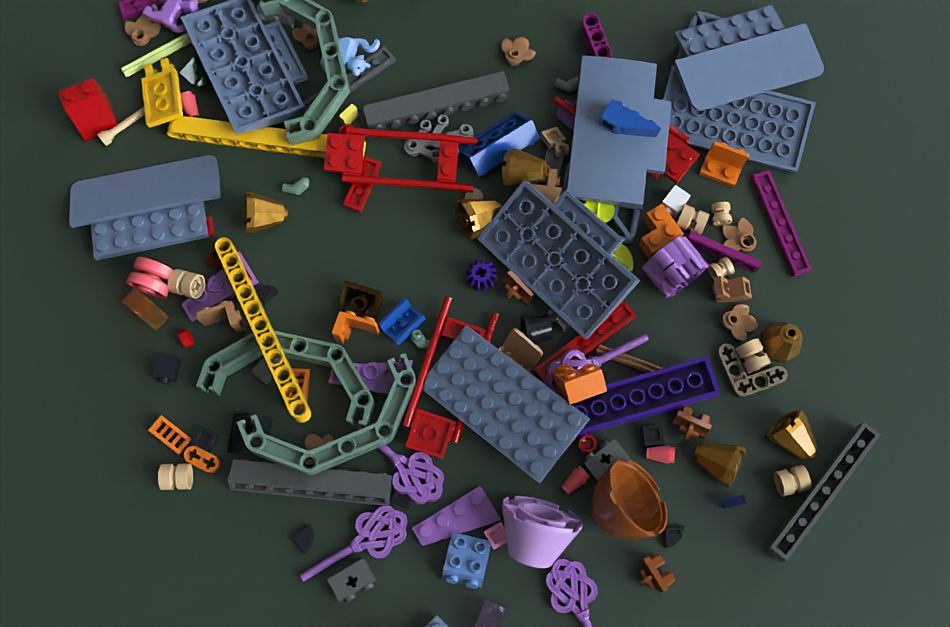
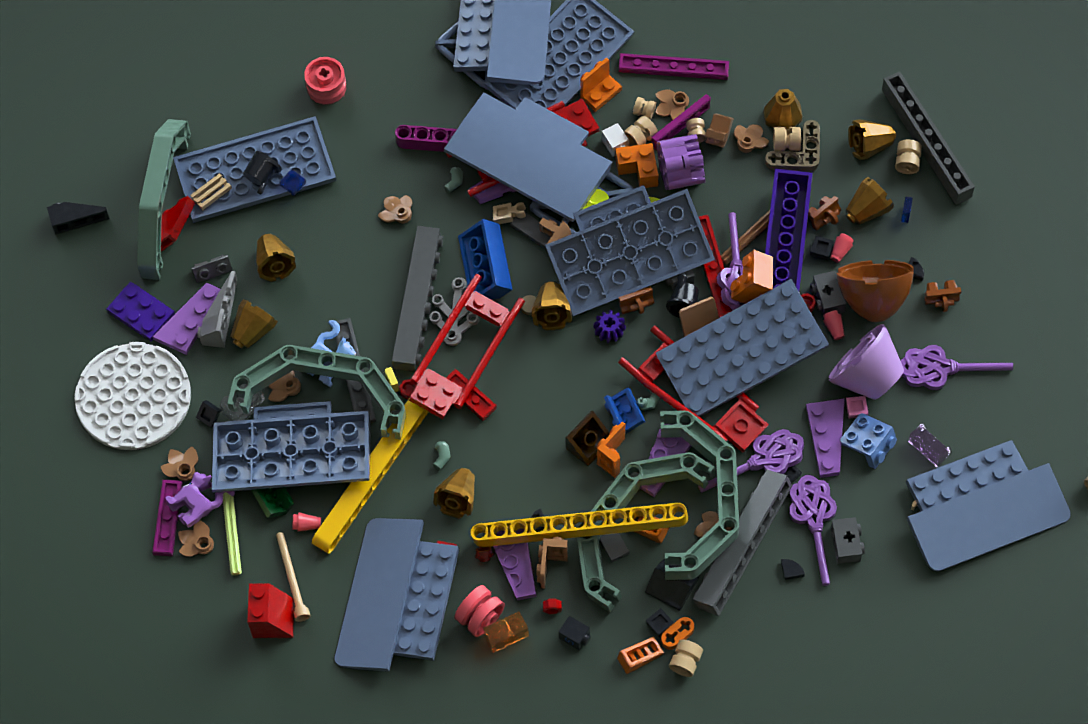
camera: 65 degrees left, 10 degrees down
(161, 94) = (285, 540): yellow tile -> none
(186, 283) = (501, 581): tan wheel -> none
(522, 167) = (528, 244): pearl gold cone -> none
(624, 121) = (528, 140): blue slope -> none

